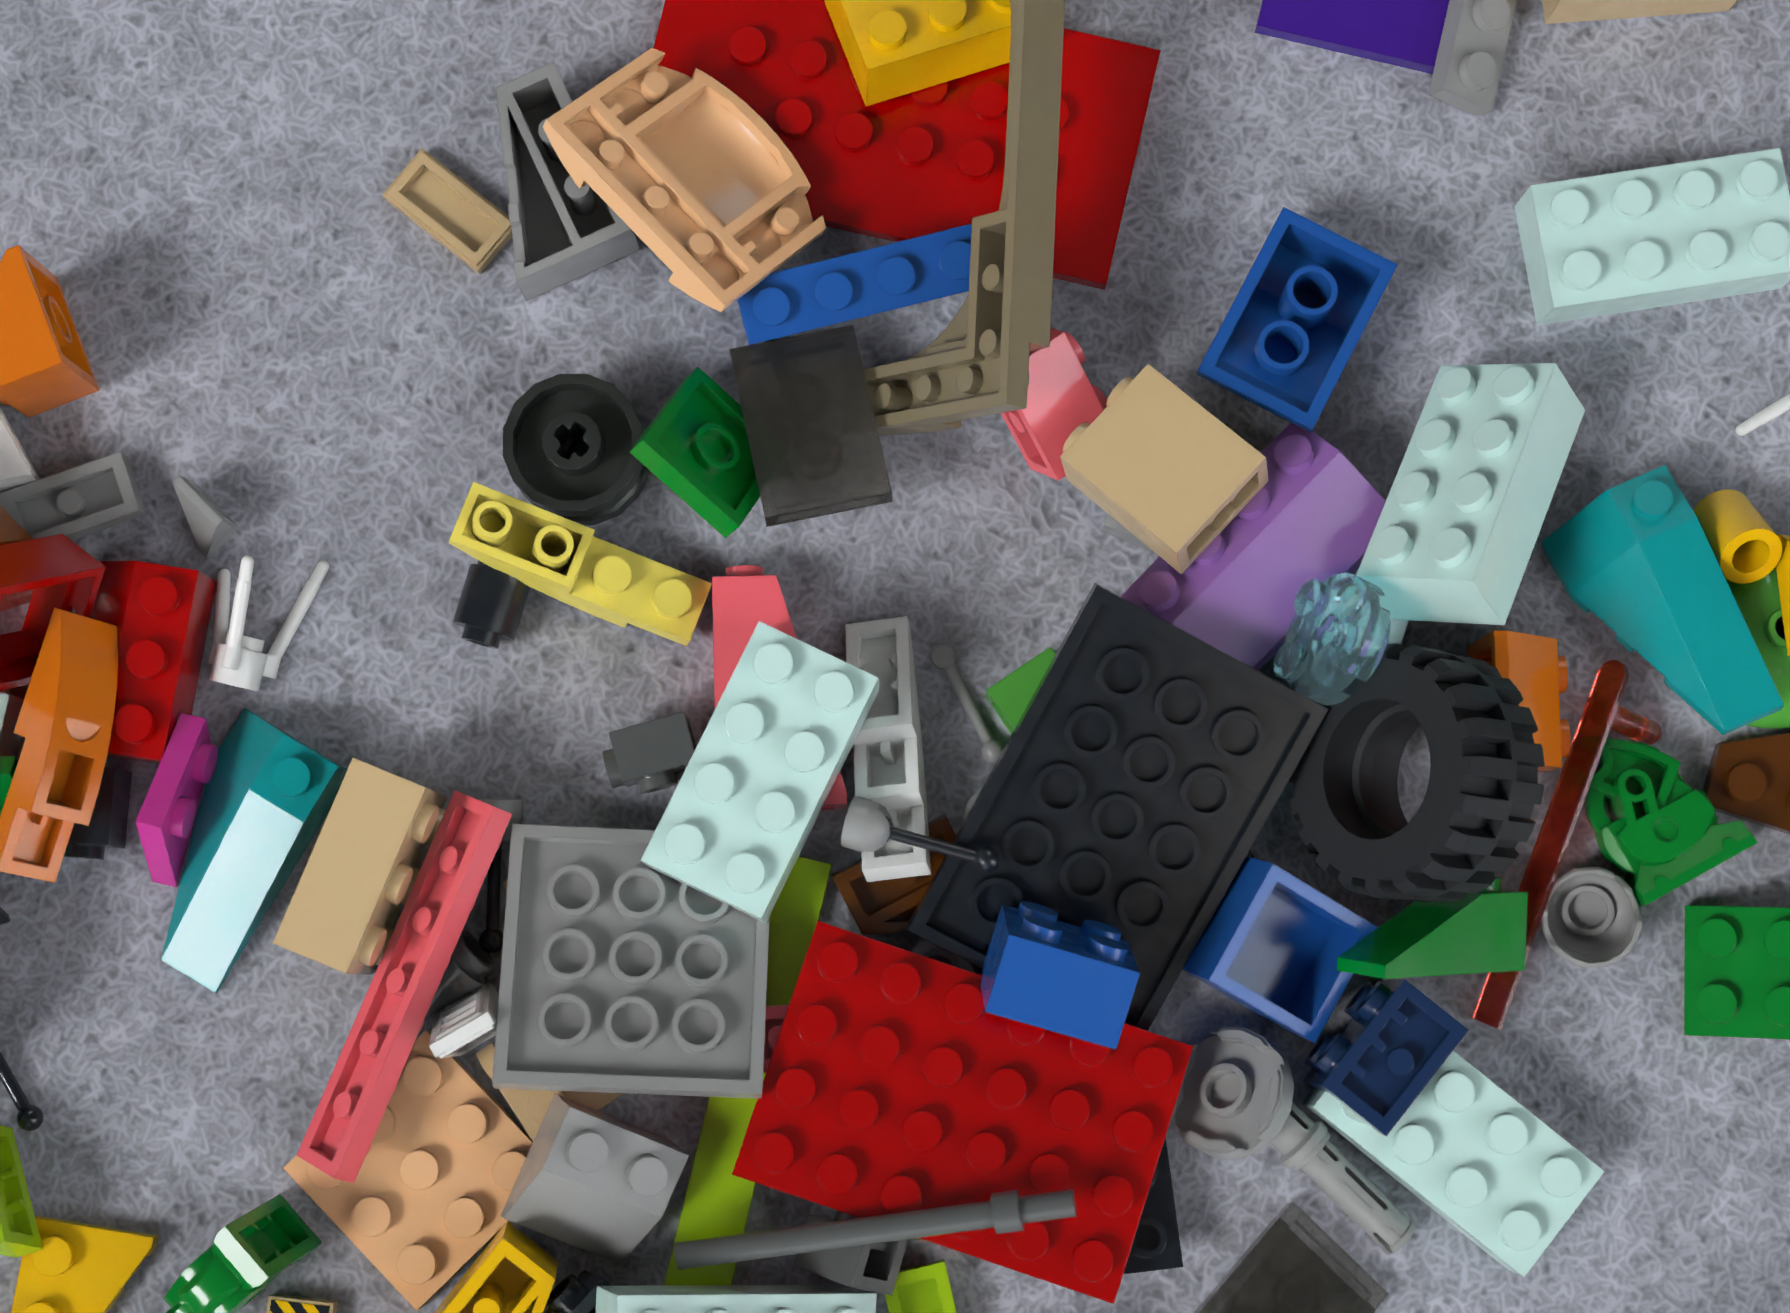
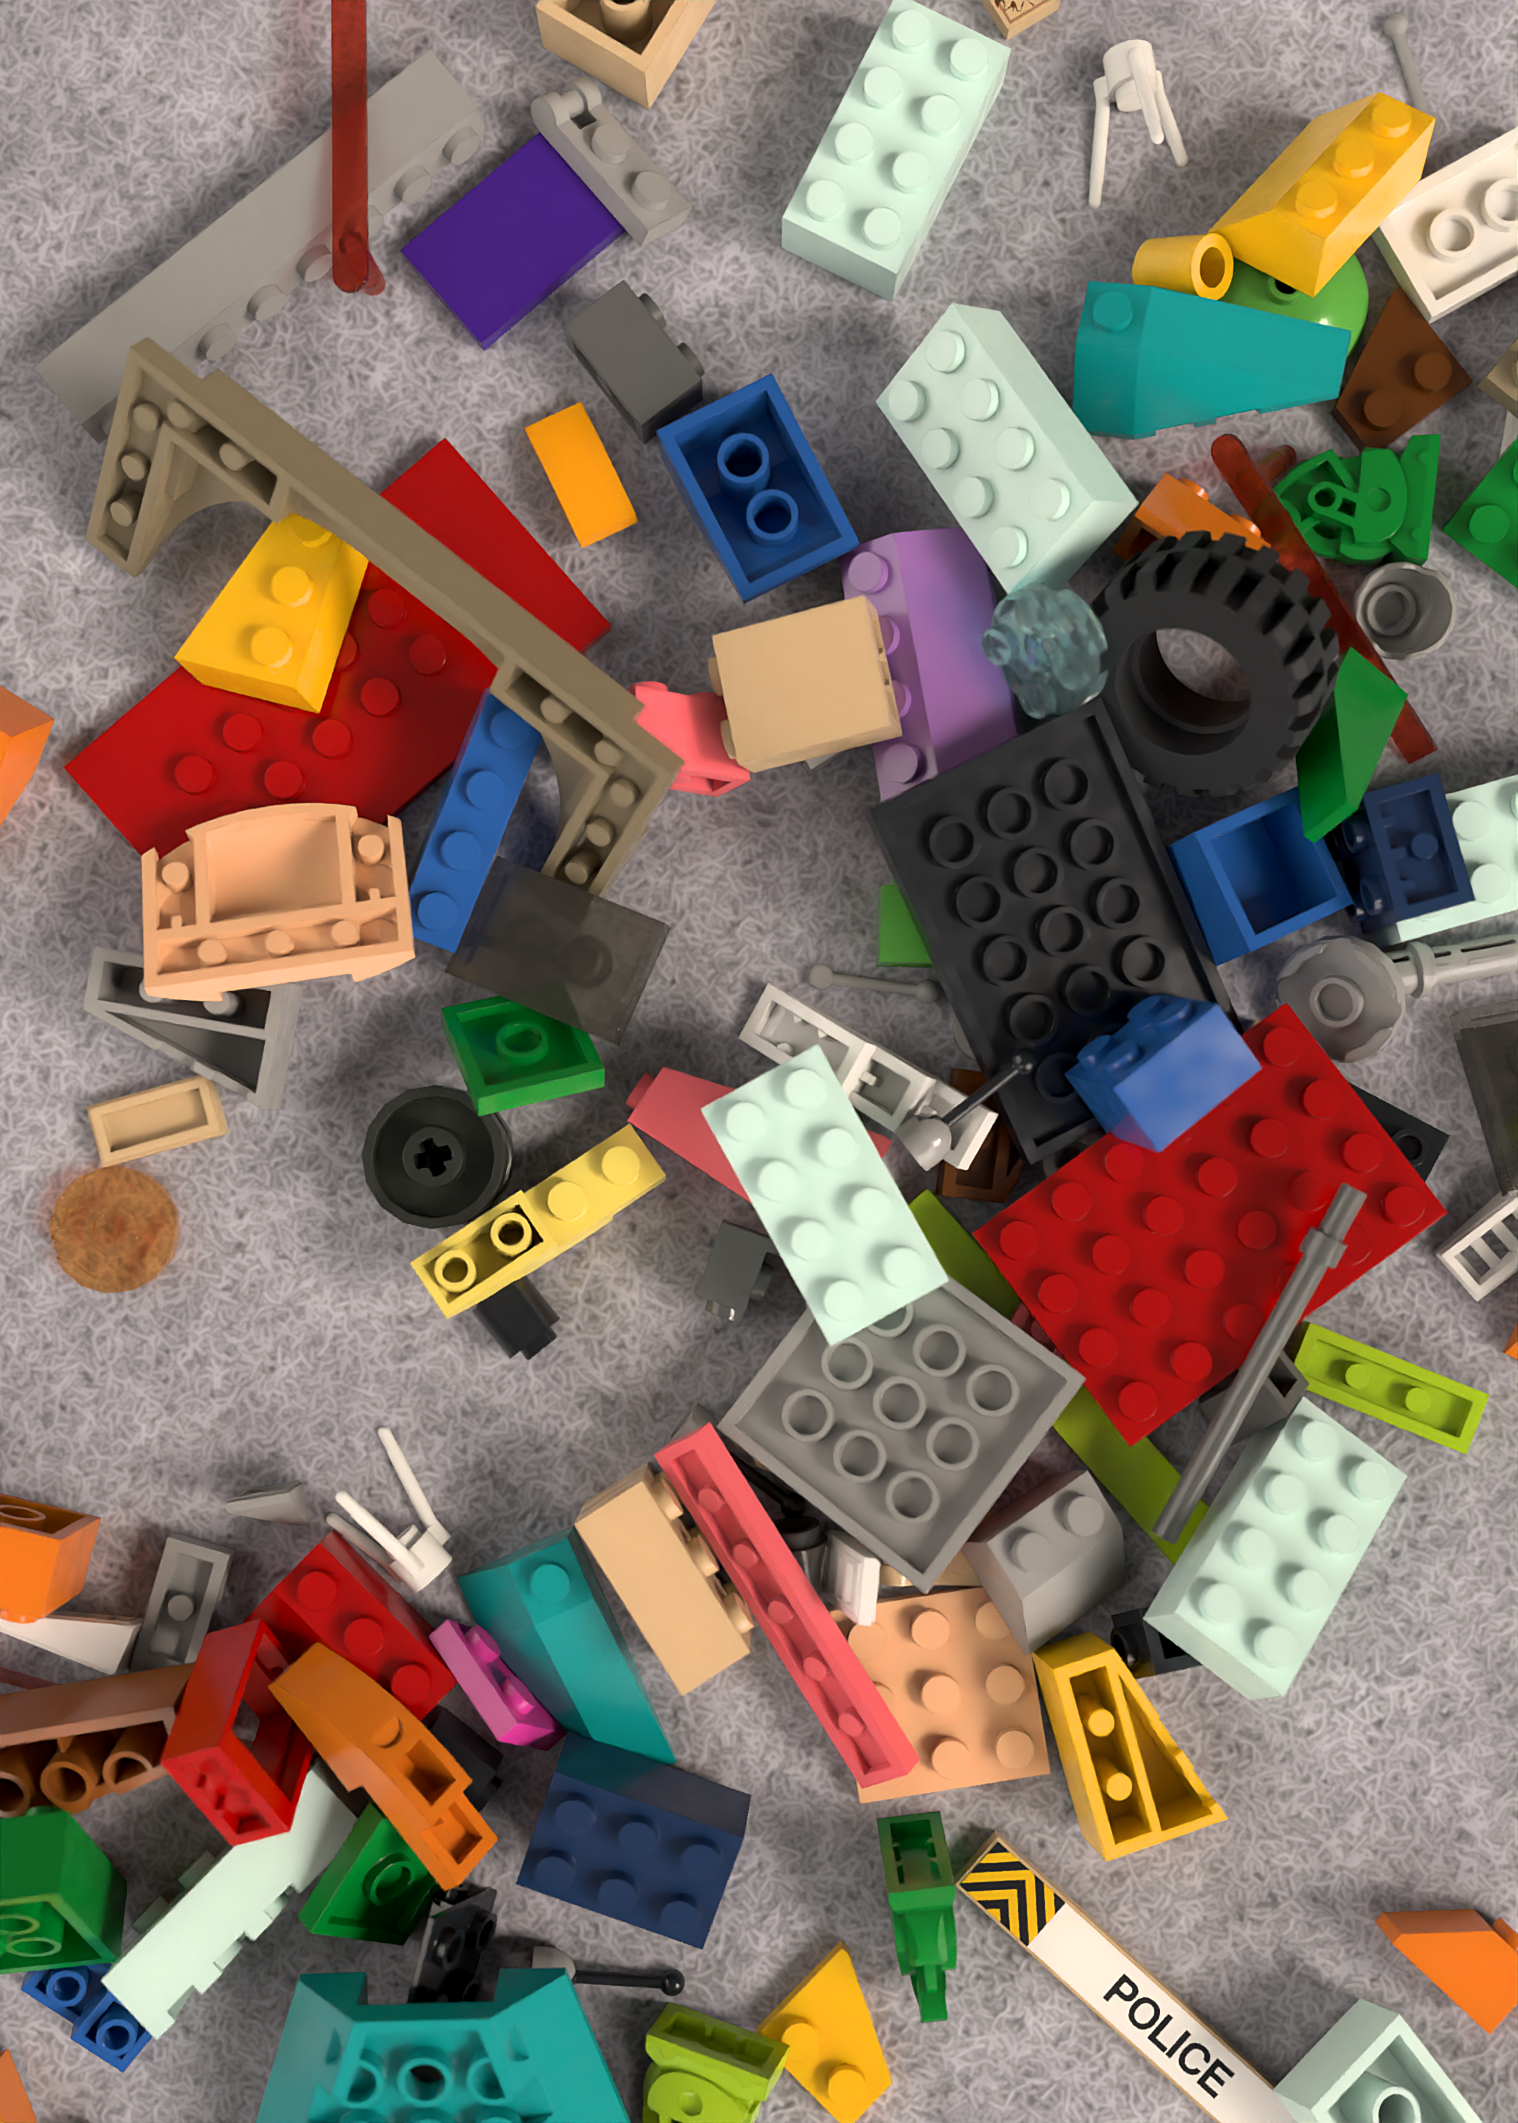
camera: 55 degrees left, 5 degrees up
(127, 997) = (635, 1840): none -> dark blue brick
(351, 259) = (138, 1229): none -> clear orange tile
(1209, 177) = (581, 474): none -> light orange slope
(1332, 154) = (635, 360): none -> dark grey brick

